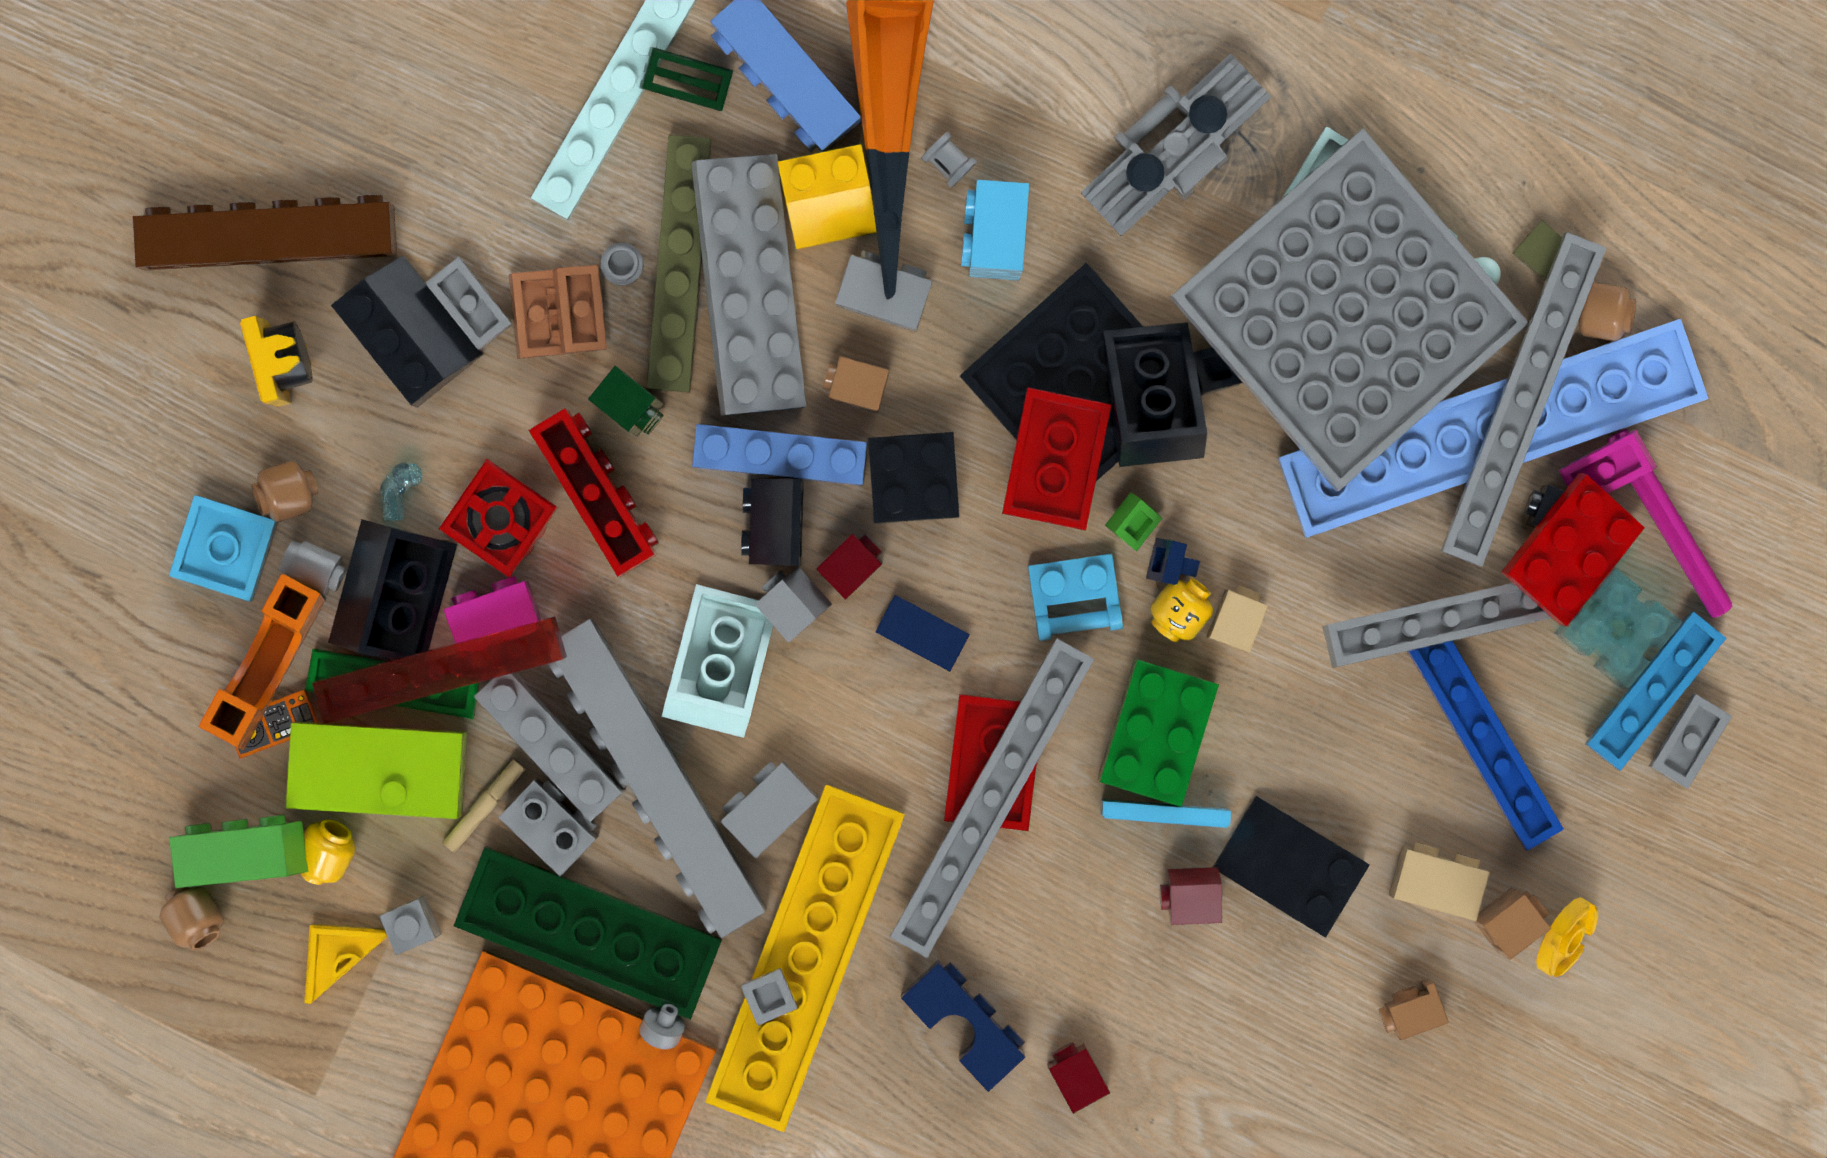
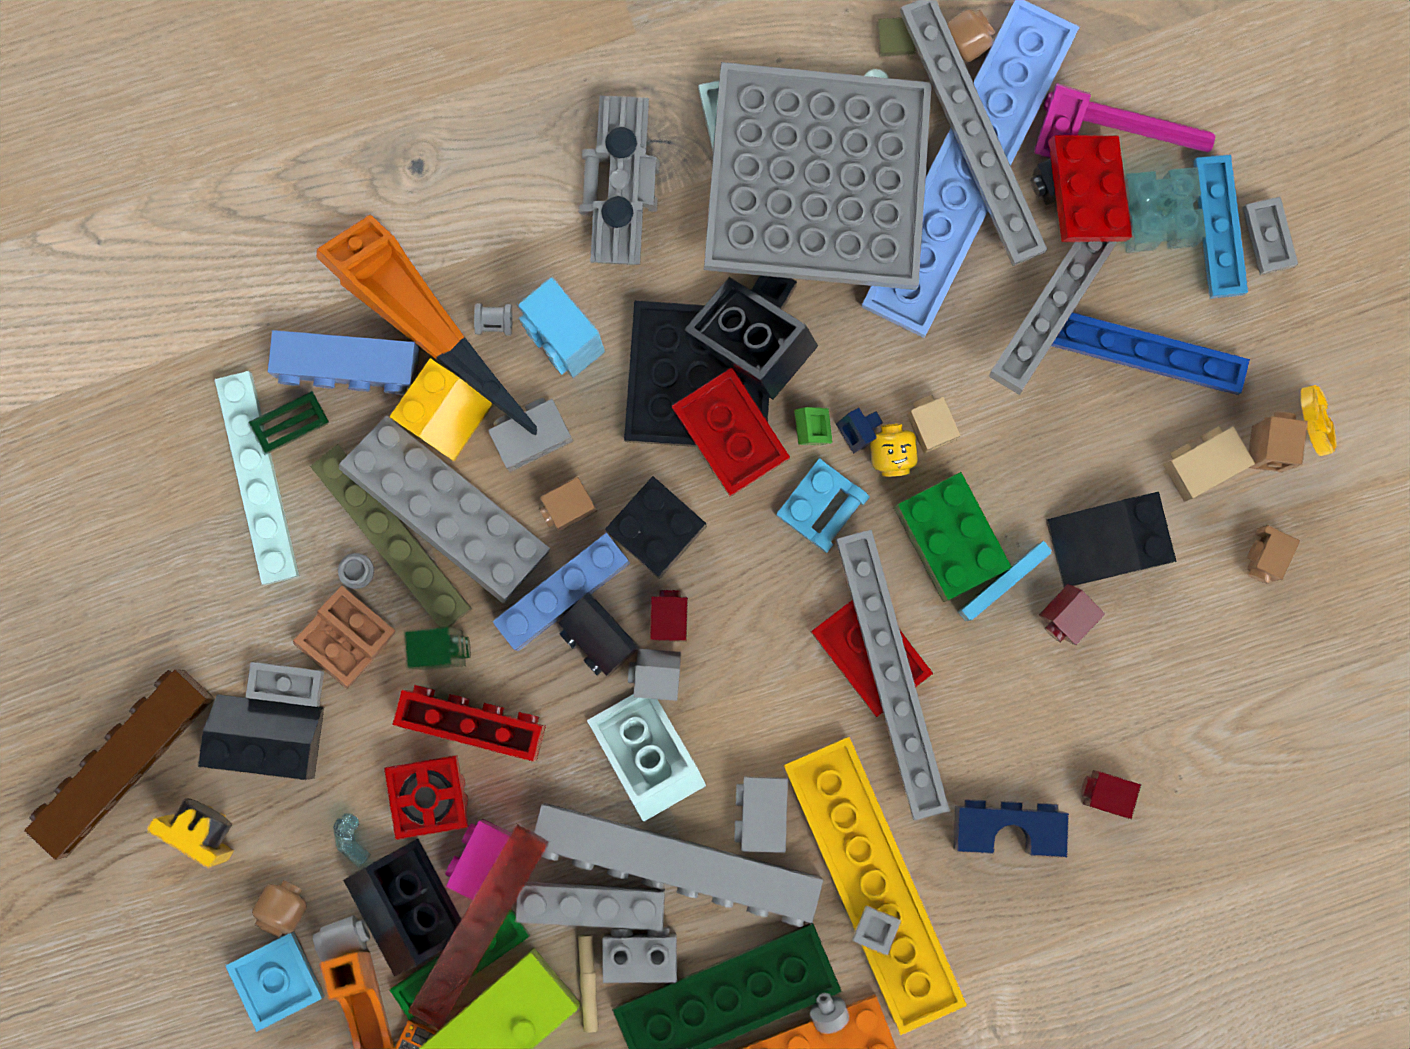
camera: 40 degrees left, 5 degrees down
(922, 633) = (752, 616): dark blue tile -> none

